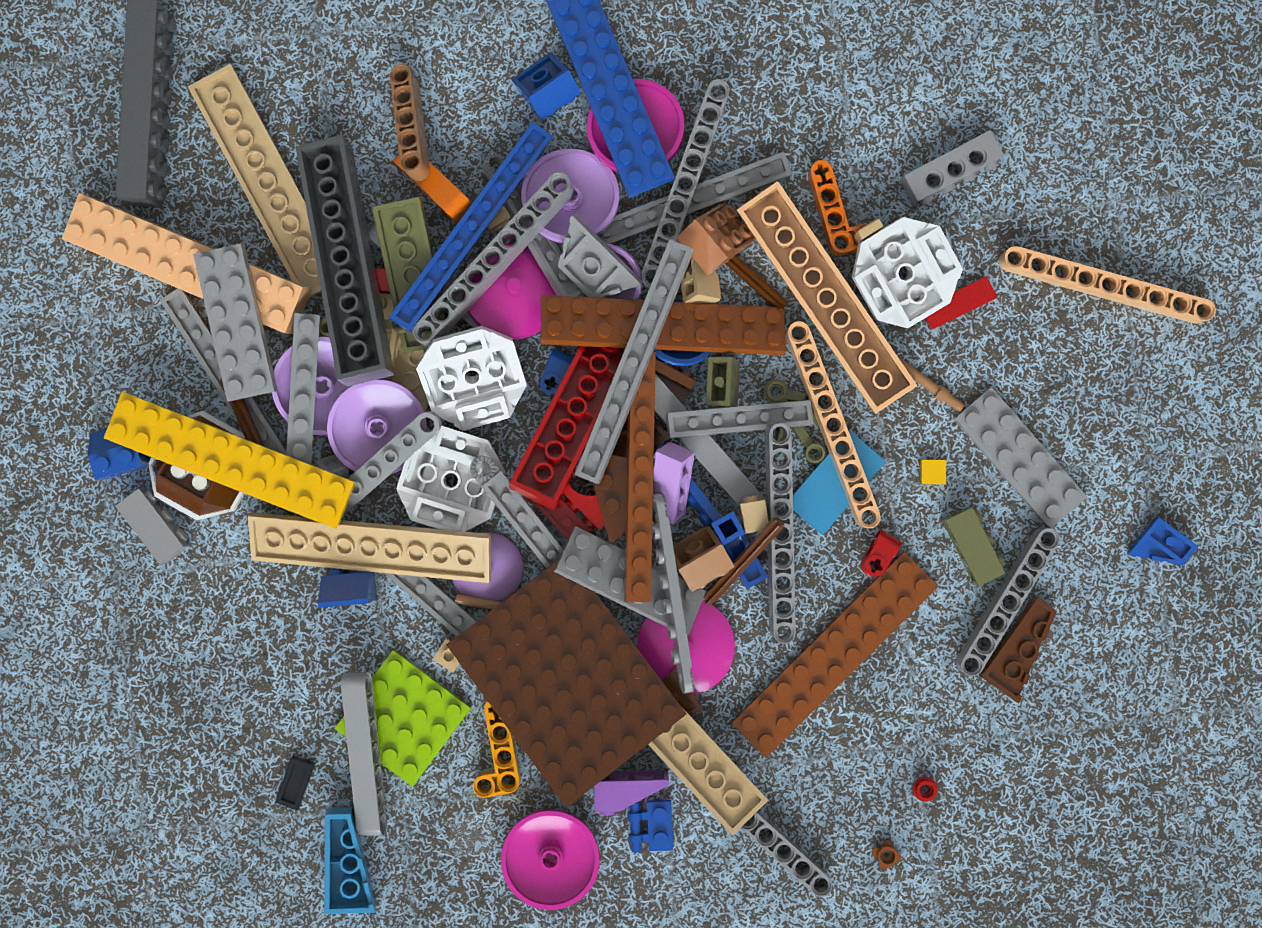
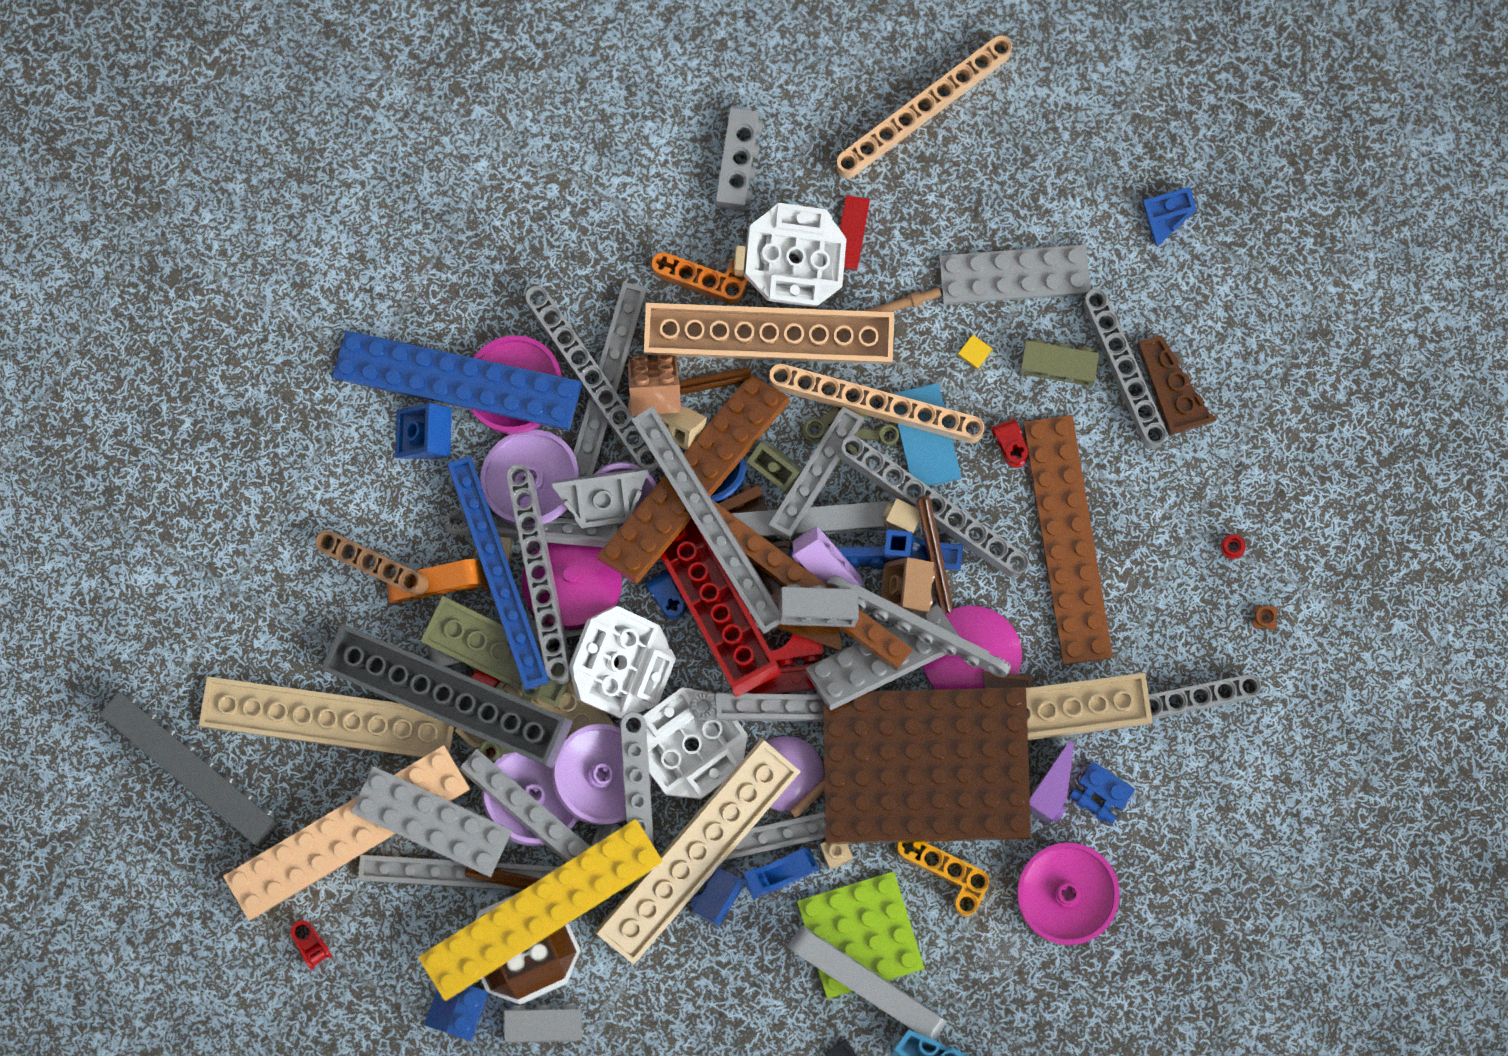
camera: 55 degrees left, 10 degrees down
(82, 300) = (310, 945): none -> red piece
(400, 621) = (780, 873): none -> blue arch
(627, 503) = (818, 606): none -> light grey brick

